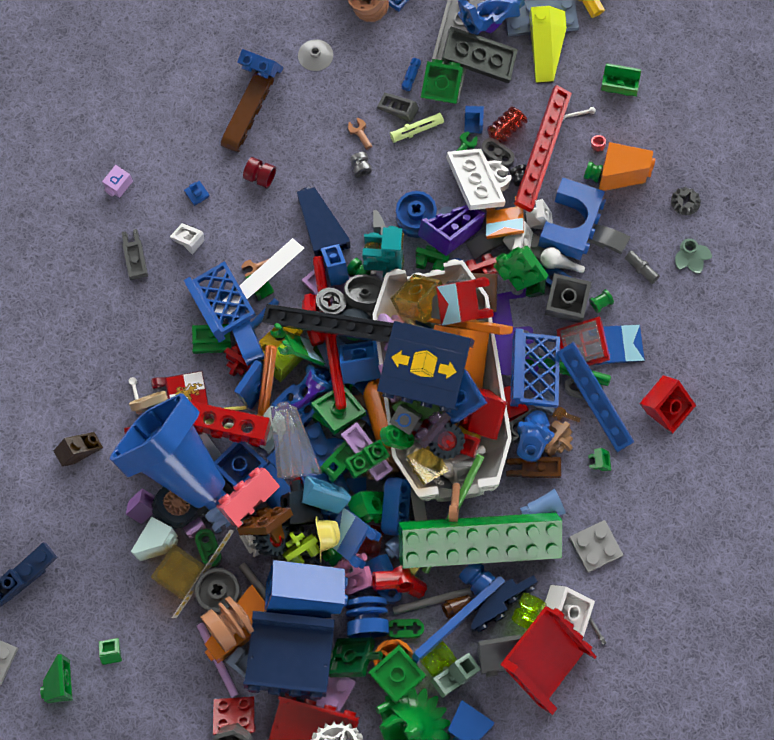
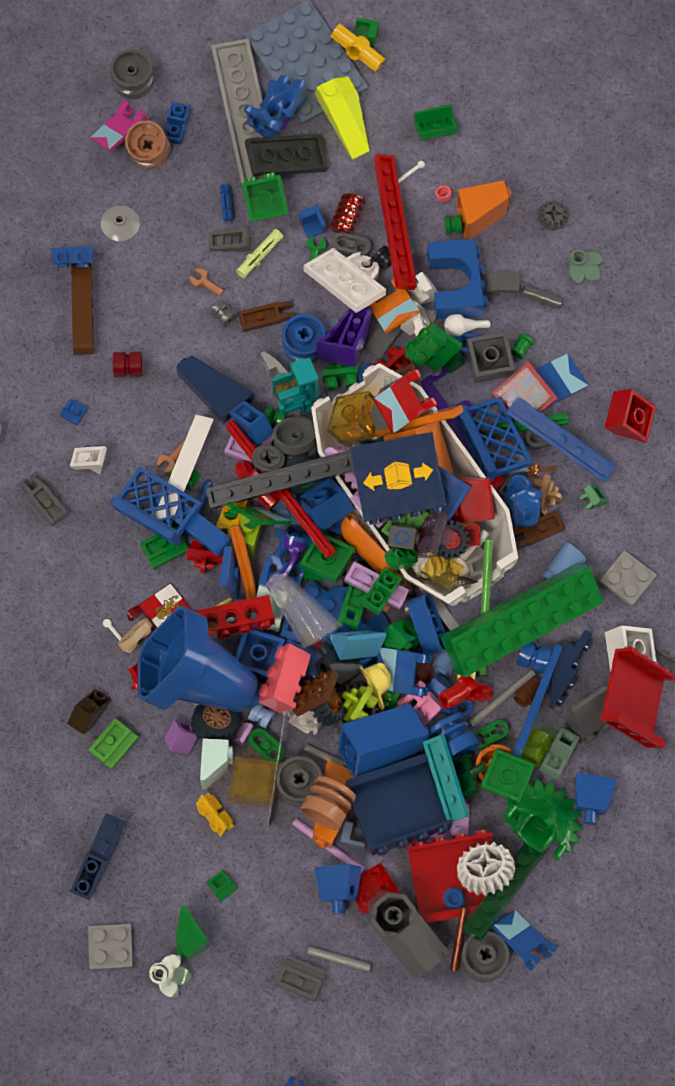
camera: 30 degrees left, 0 degrees up
(28, 710) = (173, 975): none -> plate
(83, 486) = (113, 744): none -> bright green plate
(133, 578) = (208, 806): none -> yellow hinge
(204, 700) = (338, 885): none -> blue torso
(340, 651) = (445, 778): none -> teal plate
(394, 181) = (265, 315): none -> reddish brown hinge
(454, 507) = (486, 599): nougat bar -> none
(529, 610) = (597, 665): clear neon green wheel -> none

